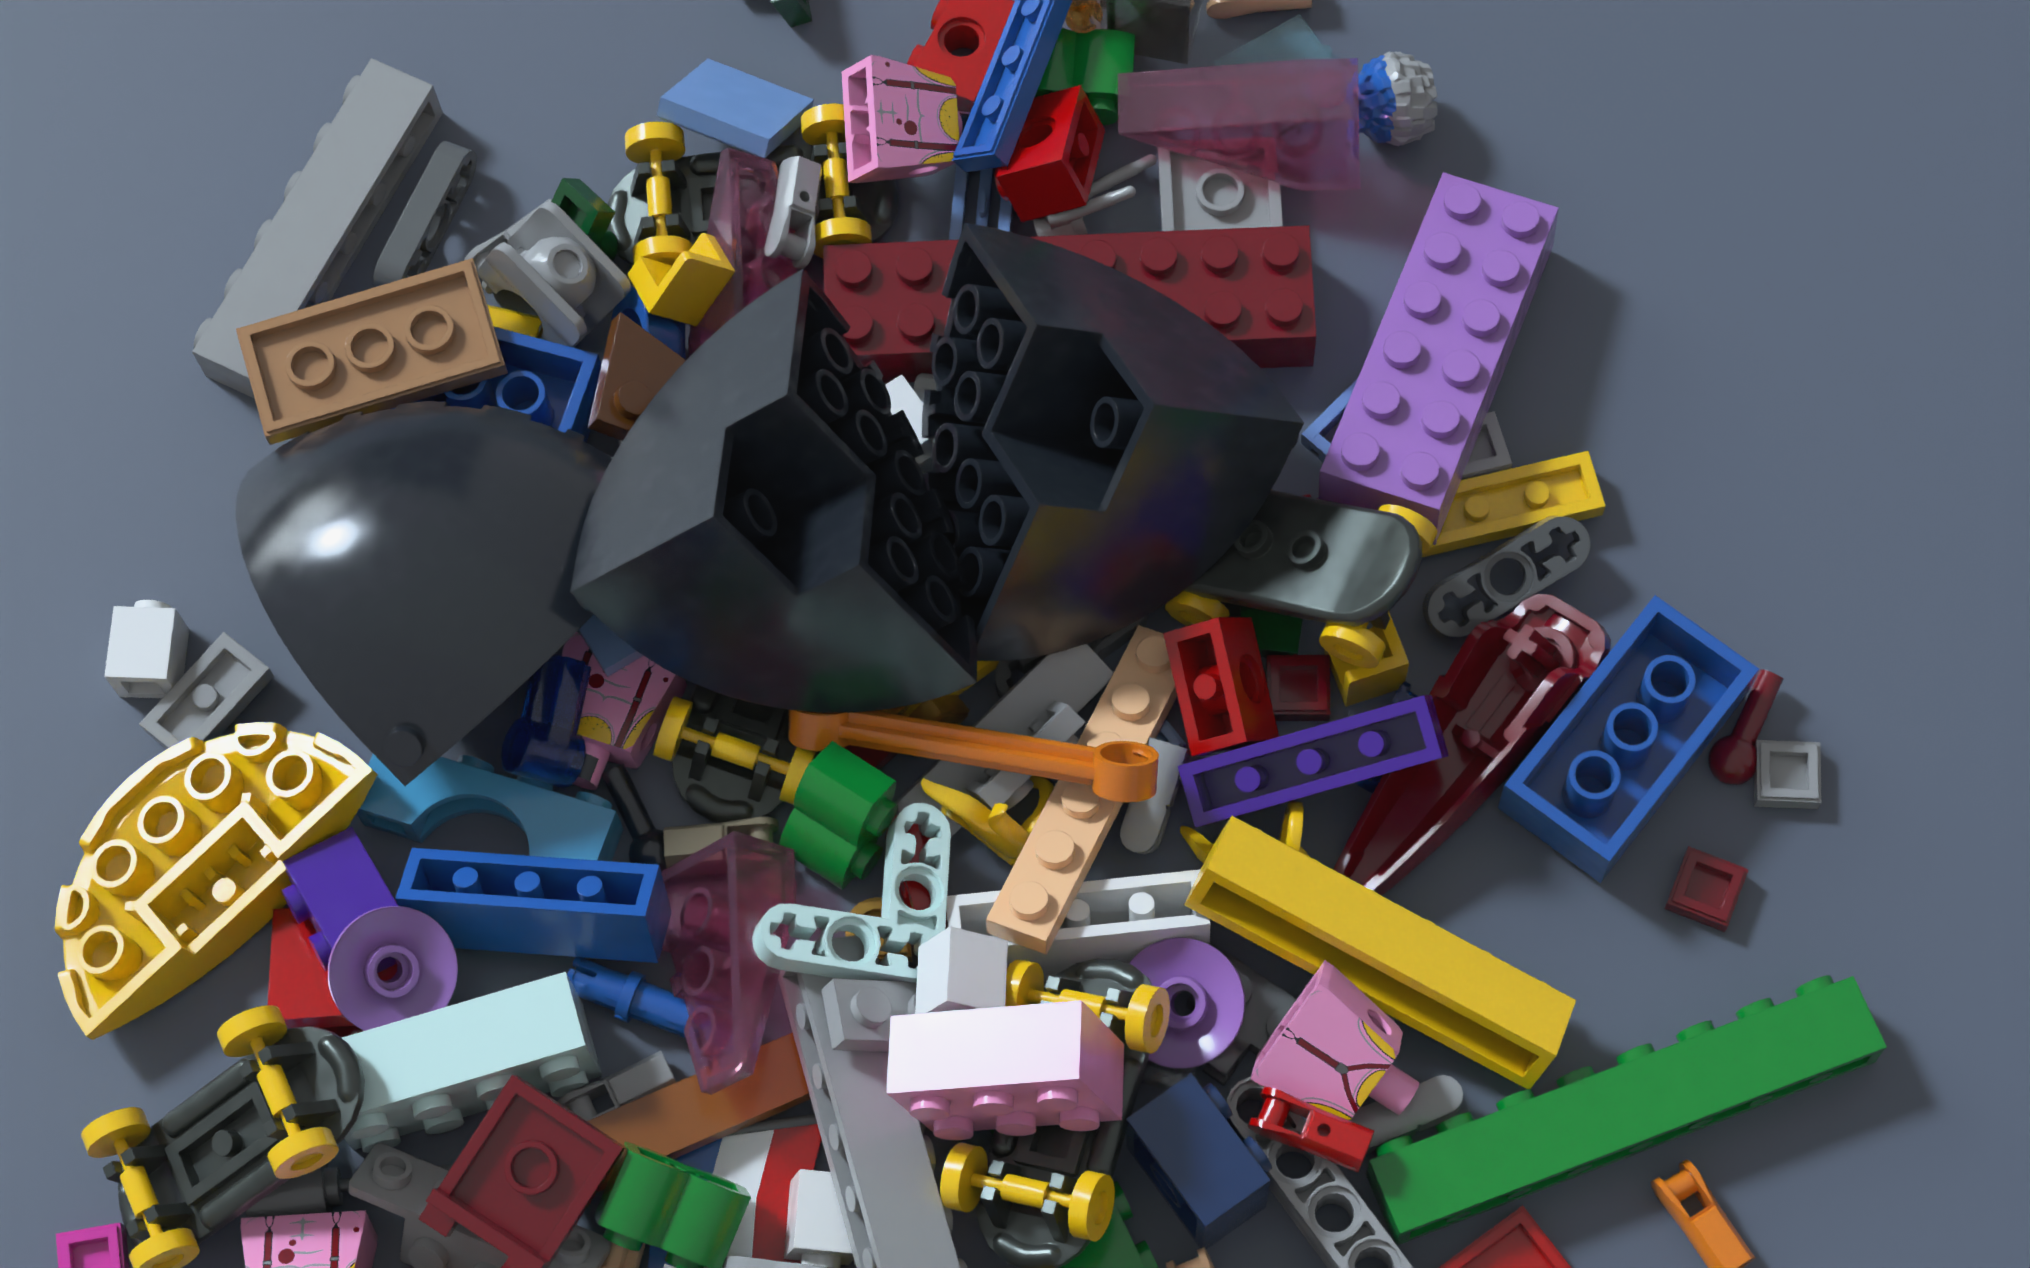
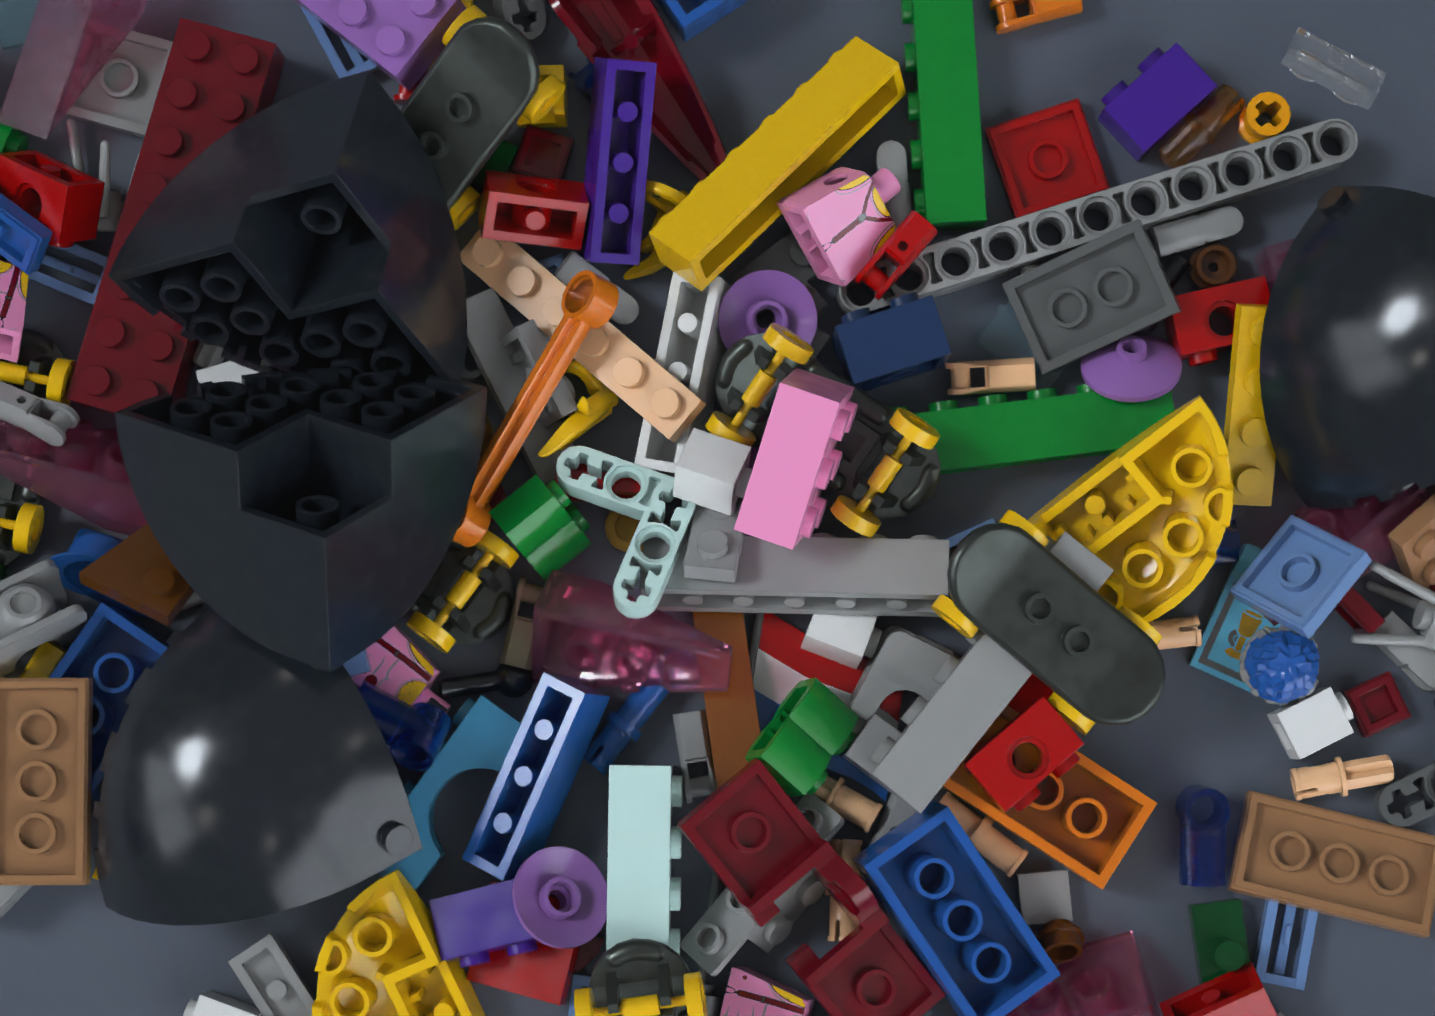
camera: 75 degrees left, 15 degrees up
(687, 286) = (65, 516): yellow panel -> none

